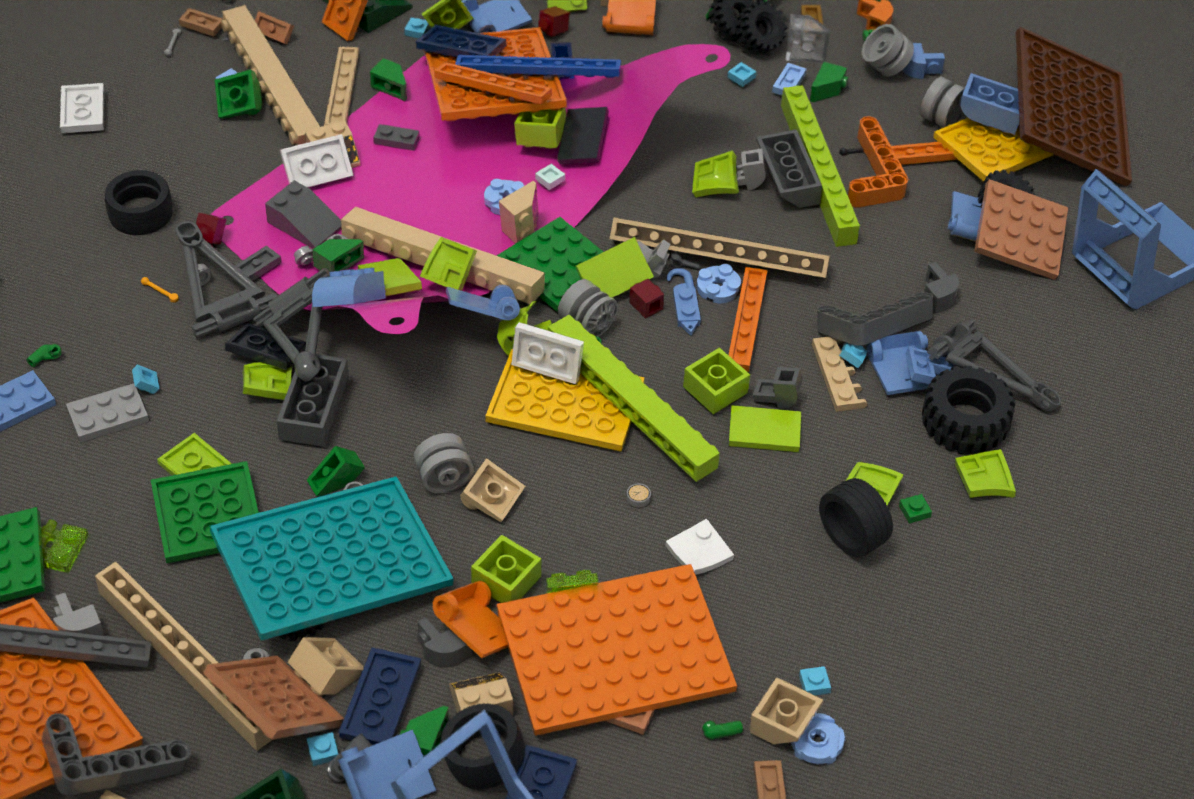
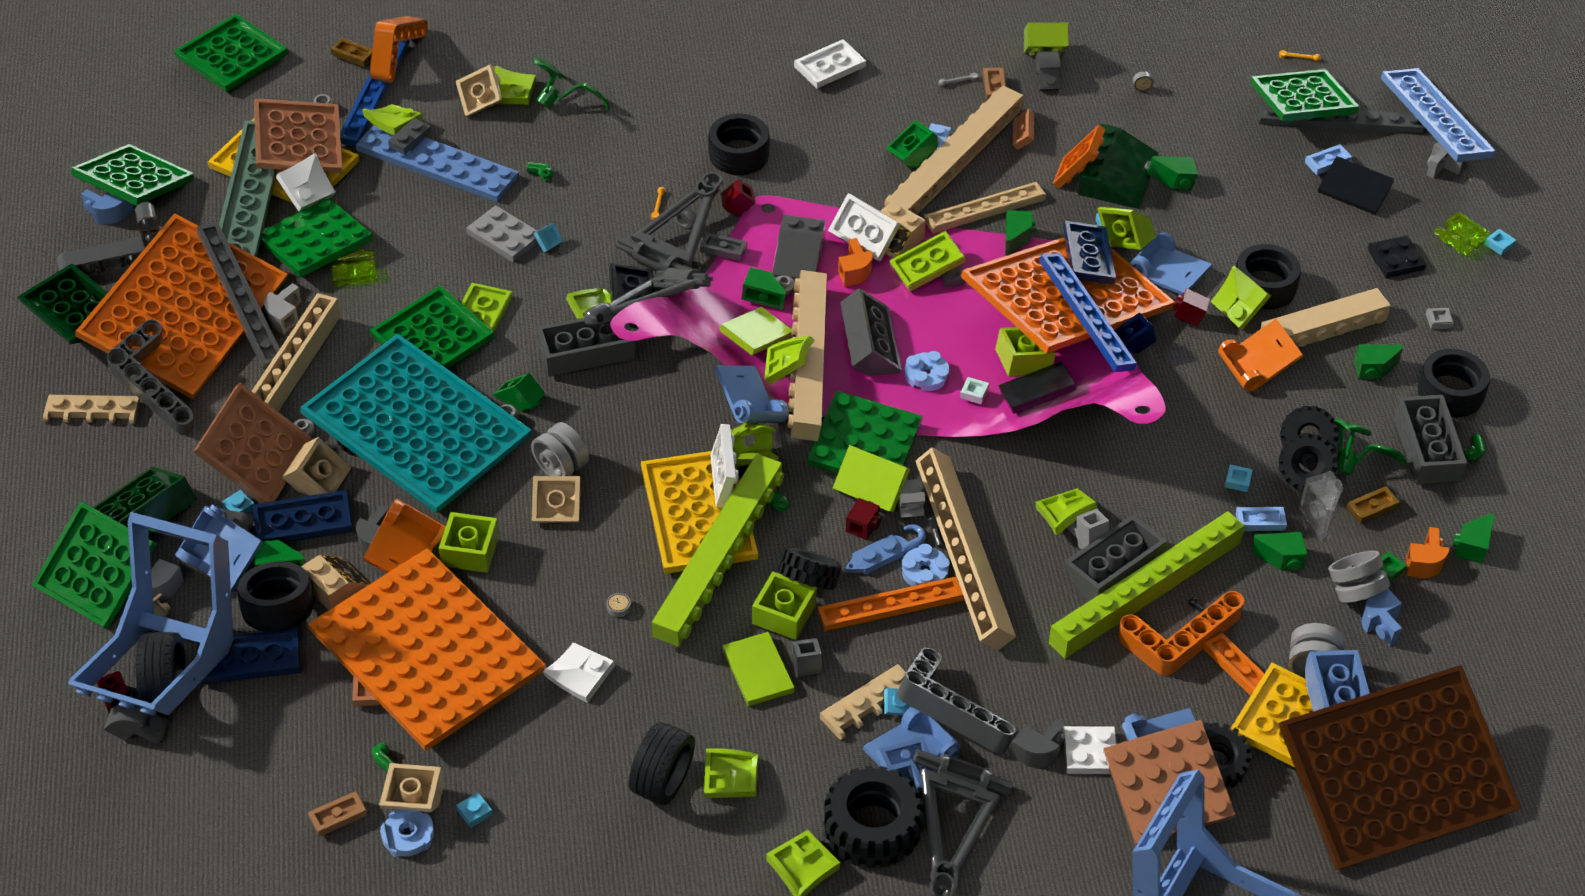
camera: 65 degrees right, 0 degrees up
(303, 256) = (746, 266): light grey plate -> none
(349, 287) = (695, 299): medium blue brick -> none
(352, 187) = (856, 266): none -> orange brick
(384, 143) = (927, 261): none -> lime tile
(441, 212) = (870, 334): none -> dark grey slope
(493, 83) = (1031, 288): orange plate -> none
(520, 212) = (899, 383): tan slope -> none
(561, 582) = (480, 589): clear neon green plate -> none
(589, 306) = (809, 477): light grey wheel -> none
(692, 345) = (809, 568): none -> black tyre
(915, 508) = (728, 821): green plate -> none
(959, 262) = (1085, 749): none -> white plate

